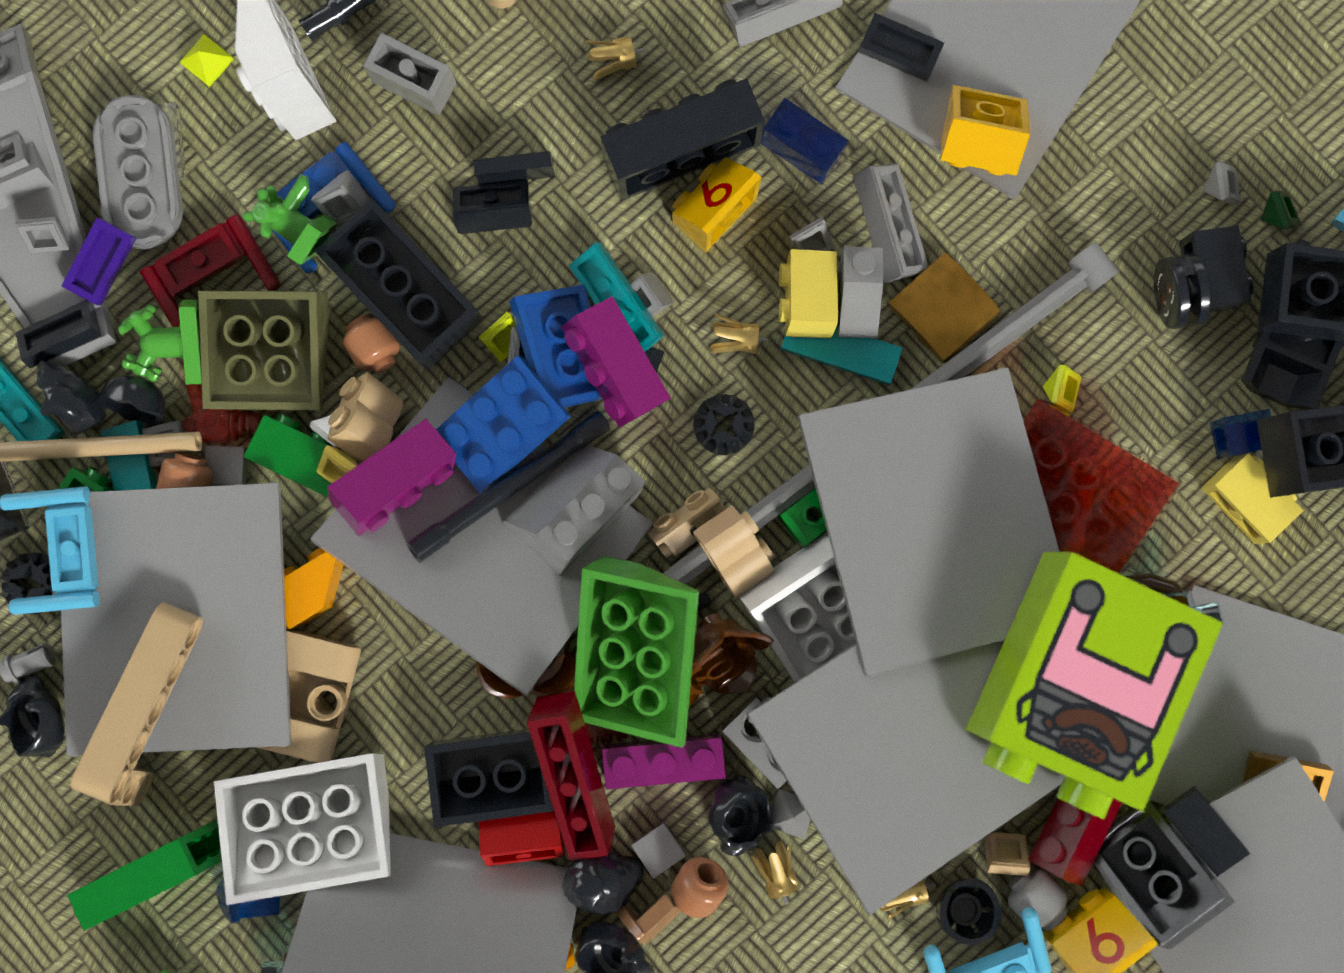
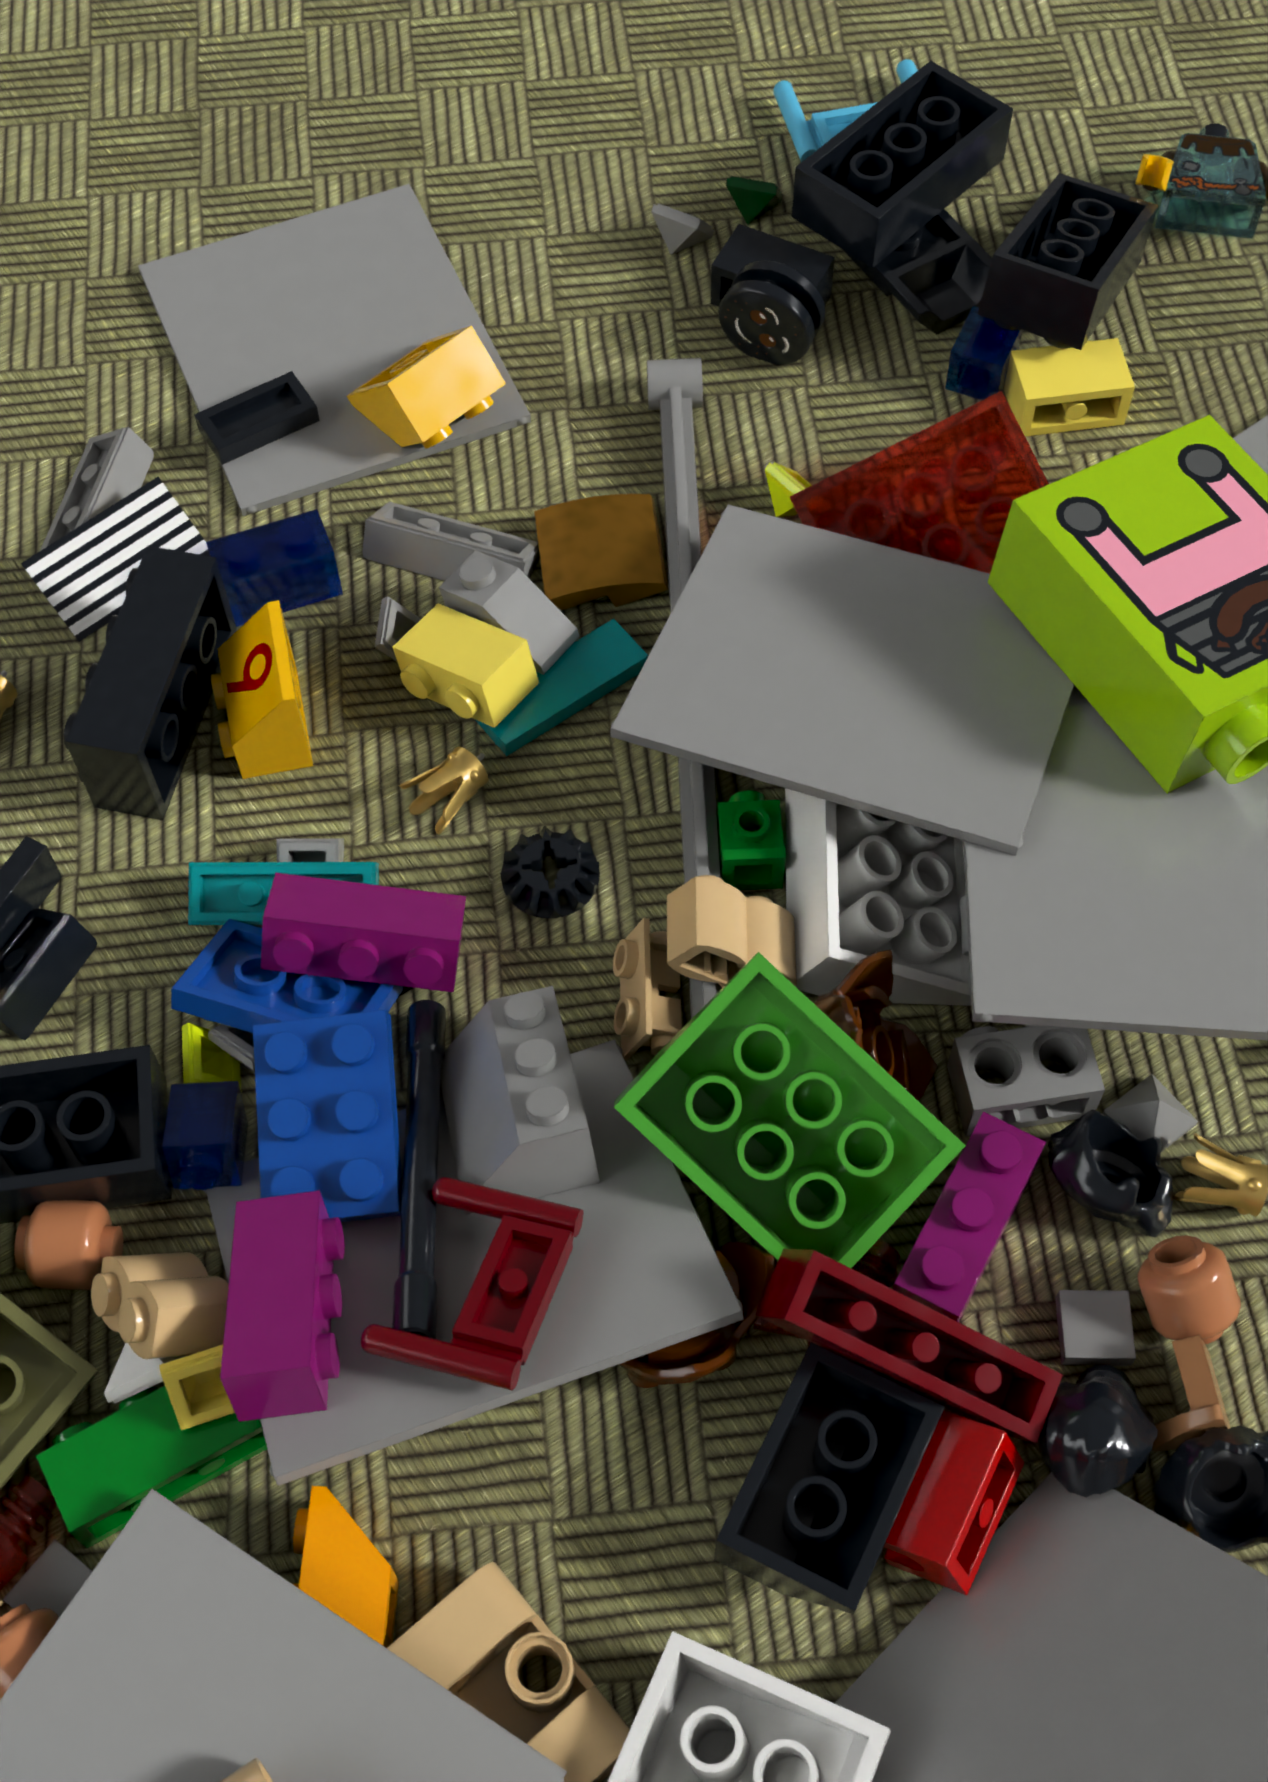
camera: 55 degrees left, 25 degrees down
(462, 367) = (205, 1135): none -> clear blue brick
(463, 580) = (507, 1294): none -> dark red plate
(753, 49) = (90, 566): none -> sticker

